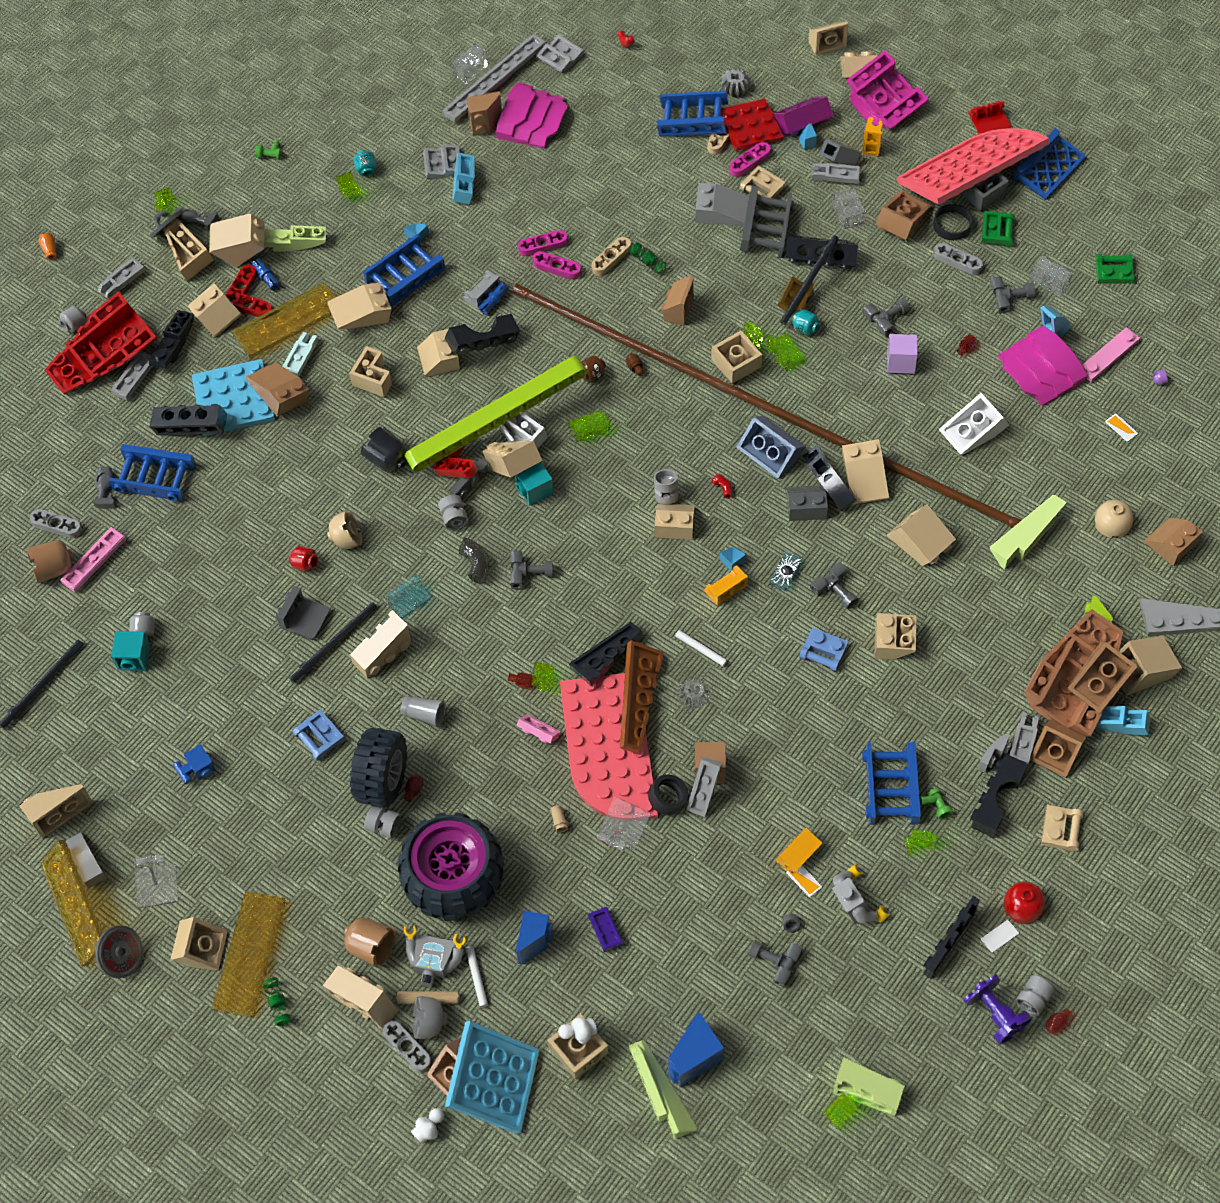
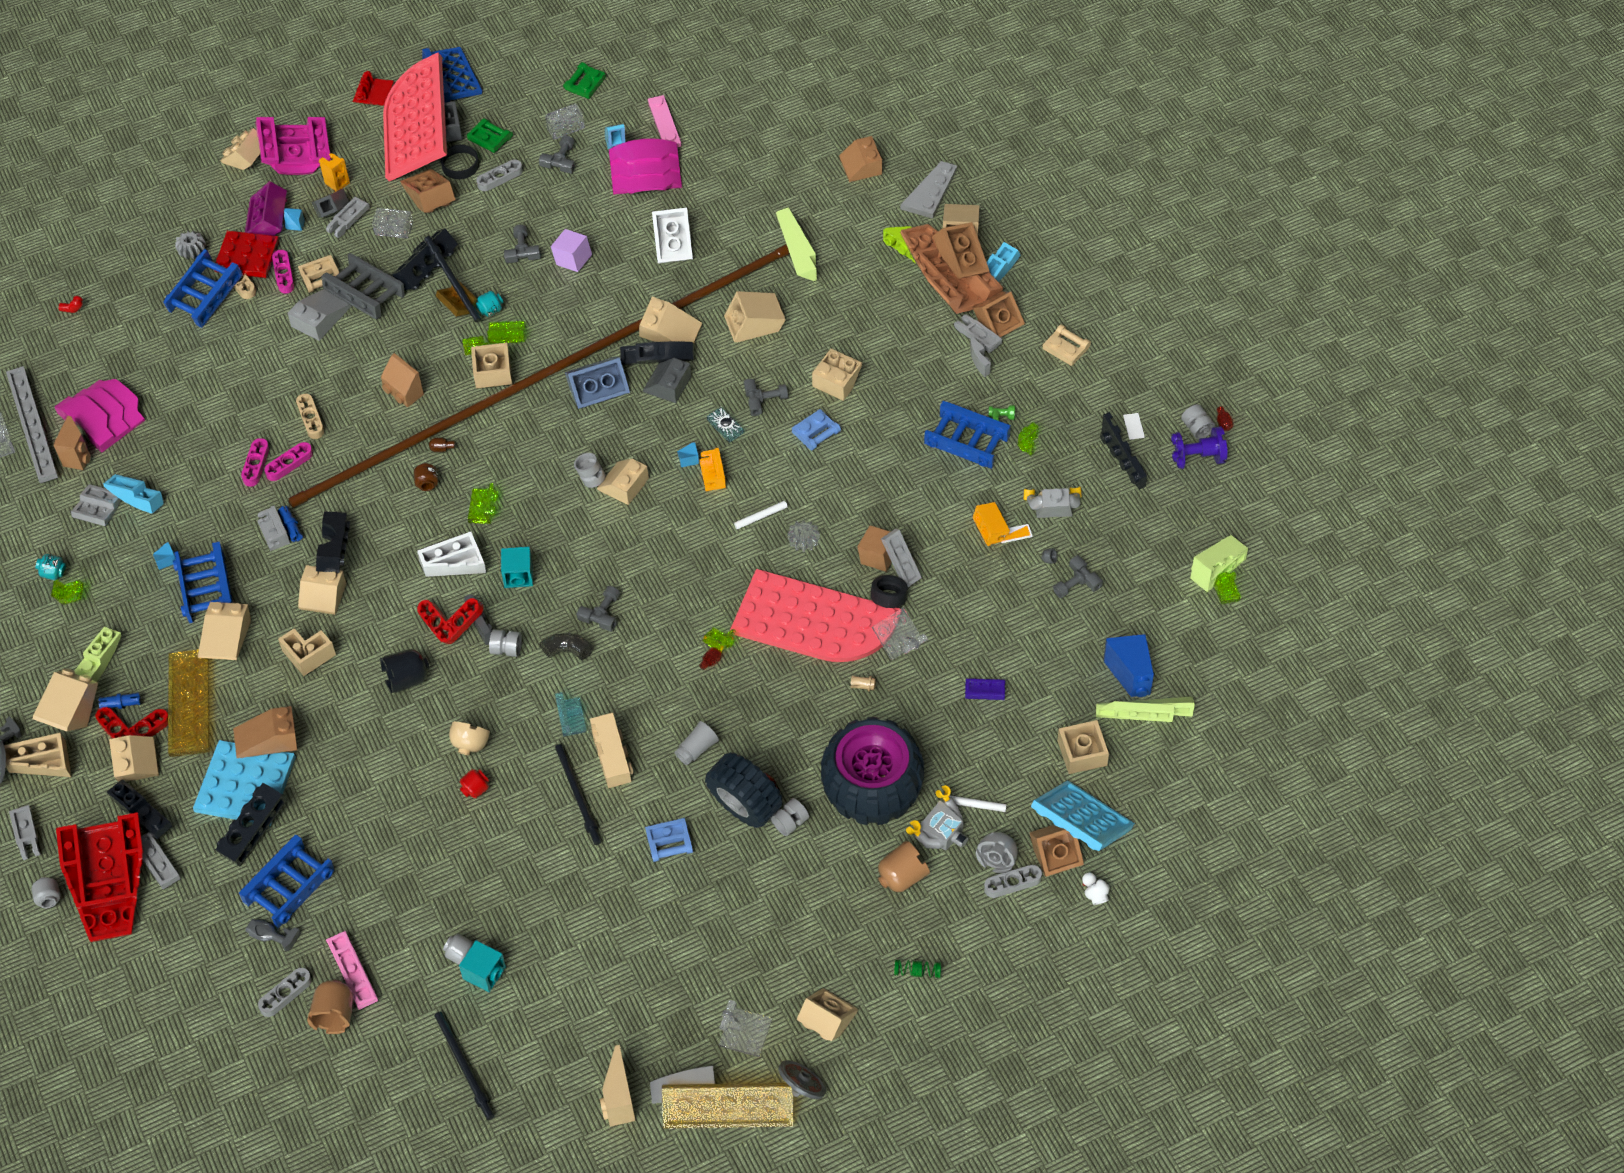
camera: 65 degrees left, 5 degrees down
(197, 762) = (640, 950): blue brick -> none
(249, 954) = (857, 977): clear yellow plate -> none
(300, 354) = (237, 704): light aqua hinge -> none
(301, 615) = (535, 807): dark grey bracket -> none
(361, 995) = (948, 895): tan wedge -> none
(407, 997) = (970, 858): tan axle -> none
(495, 414) = (432, 562): lime beam -> none
(511, 457) = (486, 568): tan wedge -> none
(533, 936) = (965, 739): blue slope -> none
(538, 728) = (771, 661): bright pink plate -> none
(560, 54) = (45, 362): light grey slope -> none
(581, 1028) = (1076, 730): white animal -> none
(605, 654) = (726, 584): black wing -> none
(640, 680) = (757, 560): dark orange wing -> none
(648, 258) = (334, 387): green piece -> none
(720, 480) = (612, 430): red arm -> none
(828, 37) = (196, 156): tan slope -> none
(967, 344) = (589, 206): clear red cylinder -> none
(1008, 775) = (1030, 384): black arch -> none
(1024, 902) = (1116, 395): red cylinder -> none
(1114, 518) = (818, 188): tan cylinder -> none
(1121, 427) = (736, 147): sticker -> none
(1160, 377) = (709, 99): medium lavender hinge -> none

